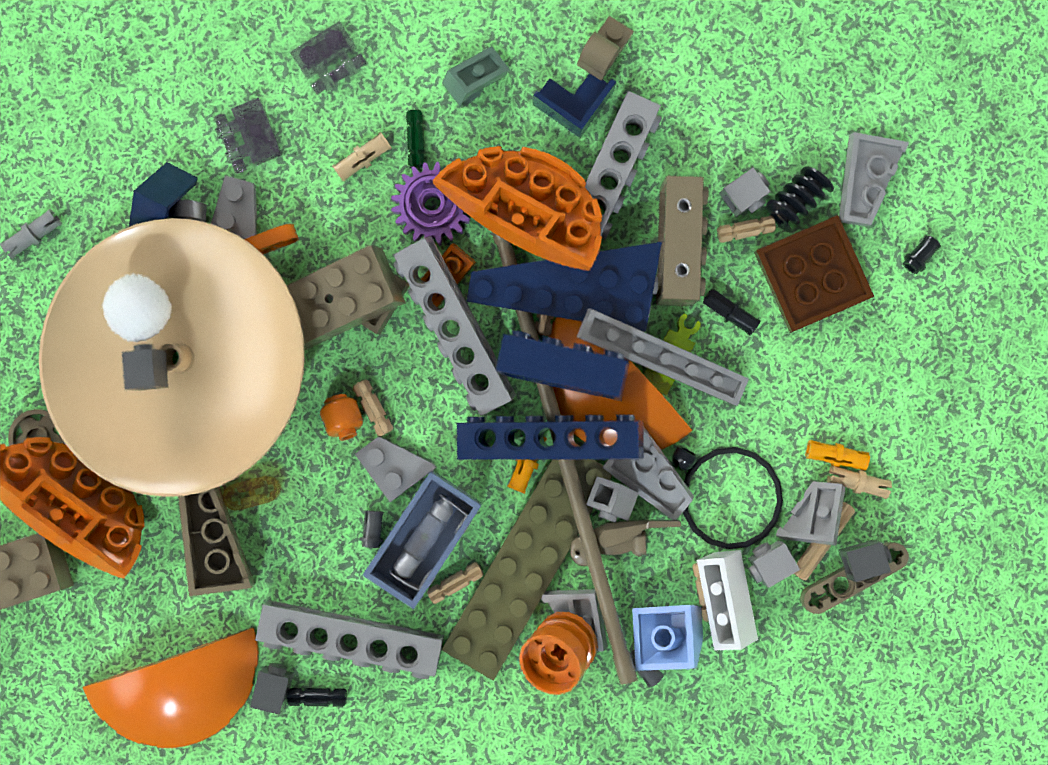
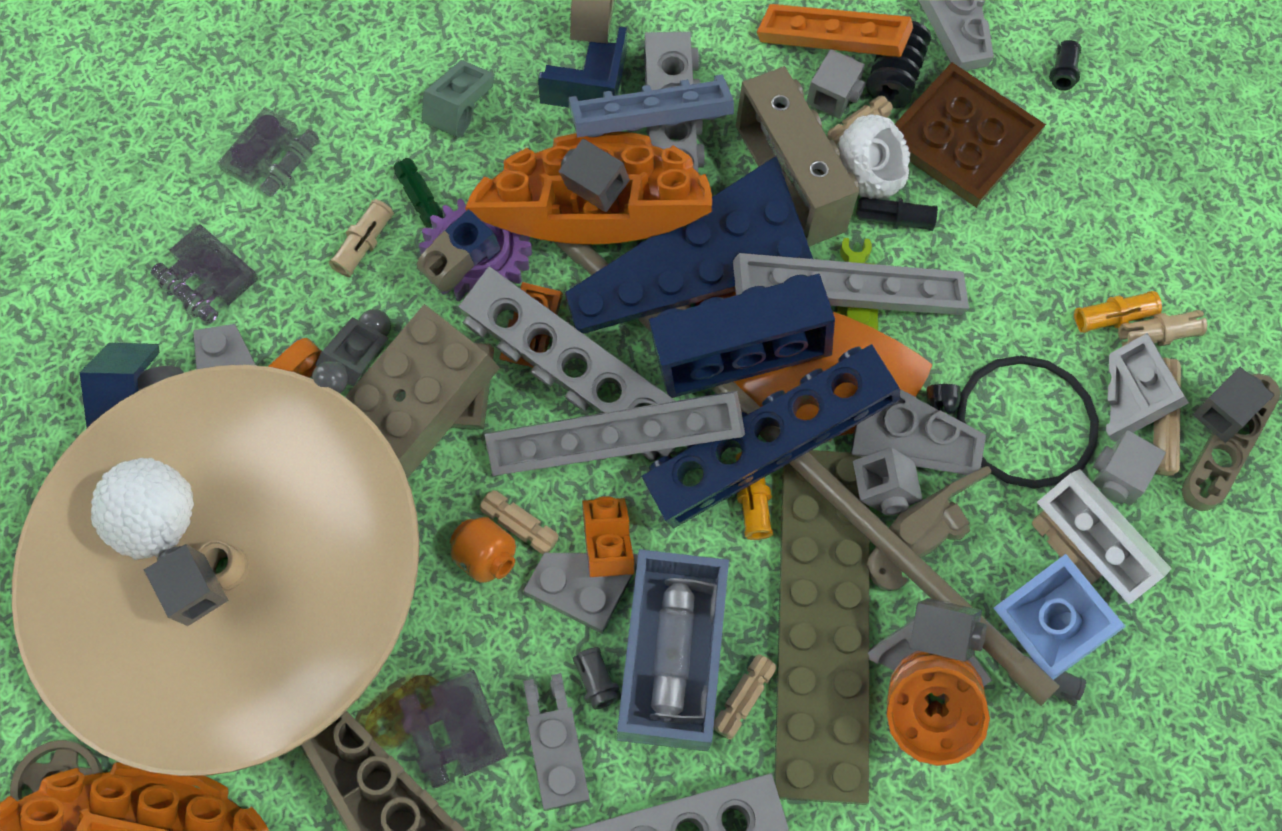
camera: 30 degrees left, 20 degrees down
(283, 519) = (467, 724): none -> plate
(315, 248) = (352, 350): none -> dark grey plate
(329, 557) = (556, 749): none -> light grey hinge
(412, 210) = (457, 251): none -> leg
(421, 446) = (607, 537): none -> orange slope
(454, 389) = (616, 433): none -> light grey plate
(524, 203) = (593, 174): none -> dark grey brick
(588, 614) = (947, 629): none -> dark grey brick
(597, 160) = (651, 107): none -> sand blue hinge
(734, 268) = (875, 155): none -> white hair
(765, 153) = (835, 29): none -> orange plate

